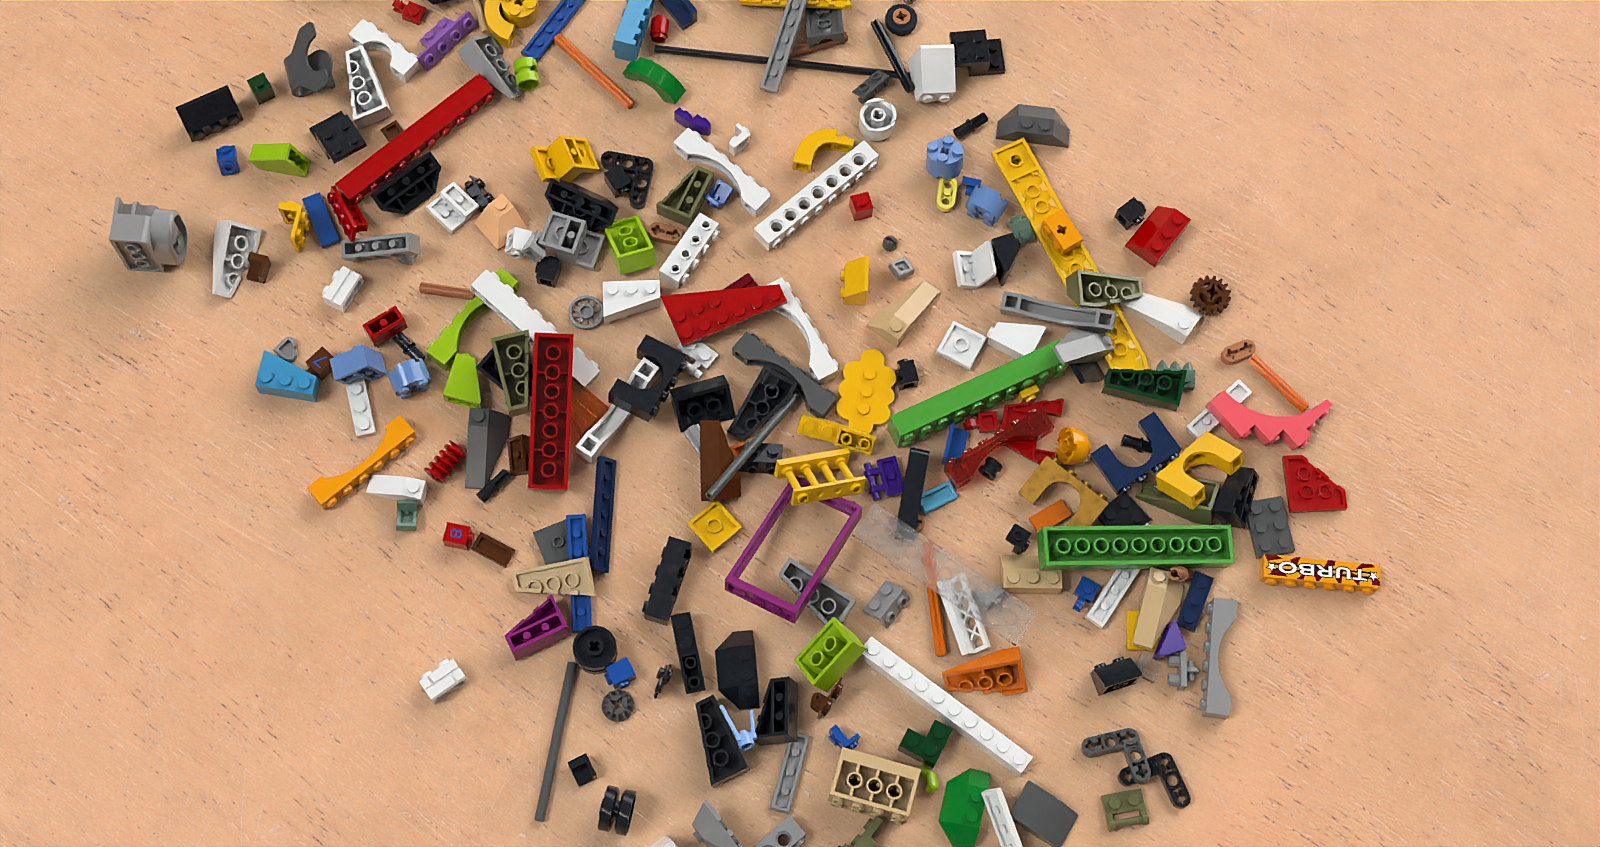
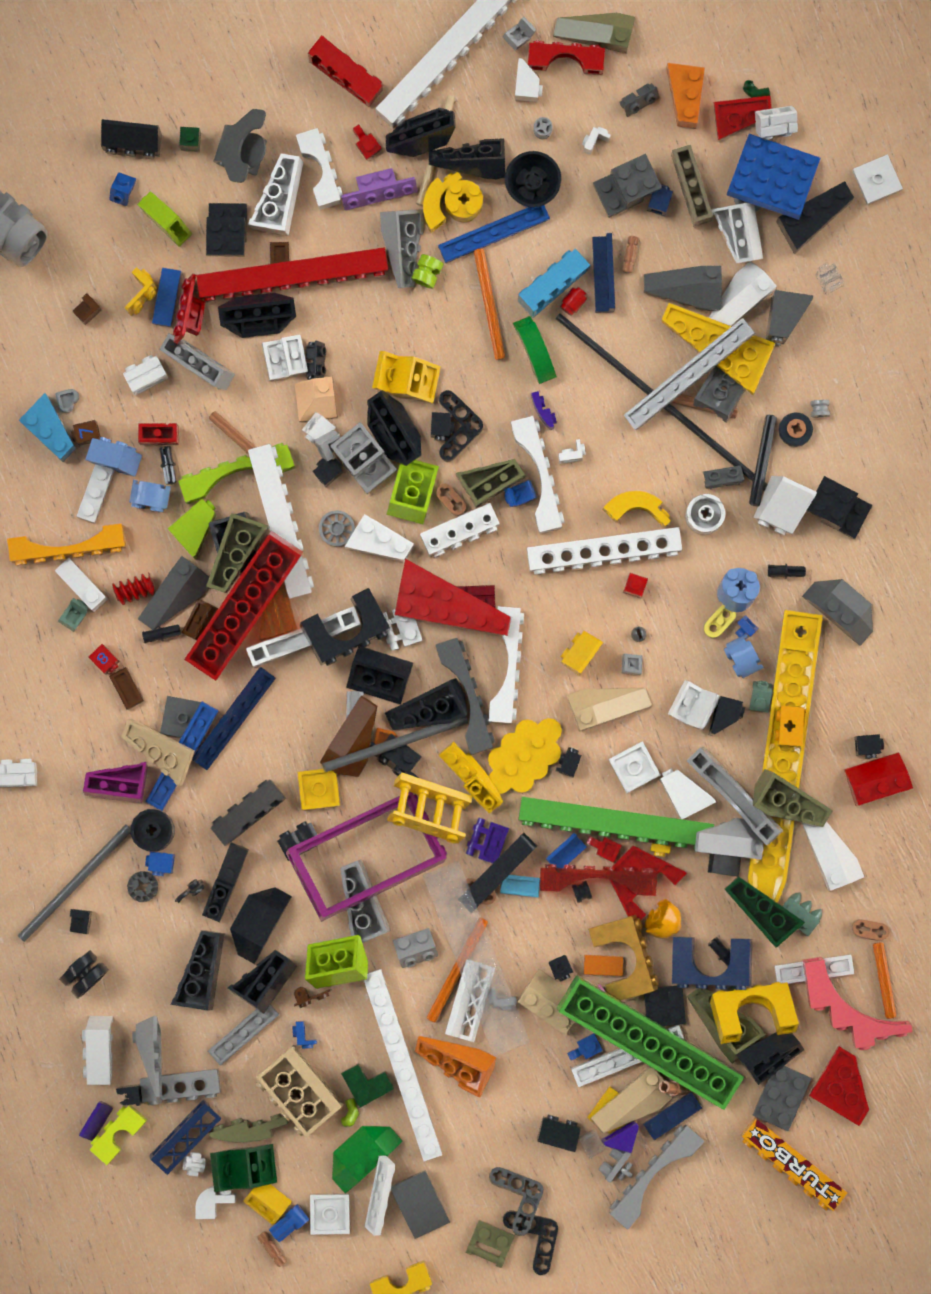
camera: 40 degrees right, 15 degrees up
(230, 254) = (75, 278): white wedge -> none
(717, 583) = (303, 832): none -> black brick
(744, 738) = (221, 984): light blue plant -> none
(1202, 296) = (877, 858): reddish brown gear -> none

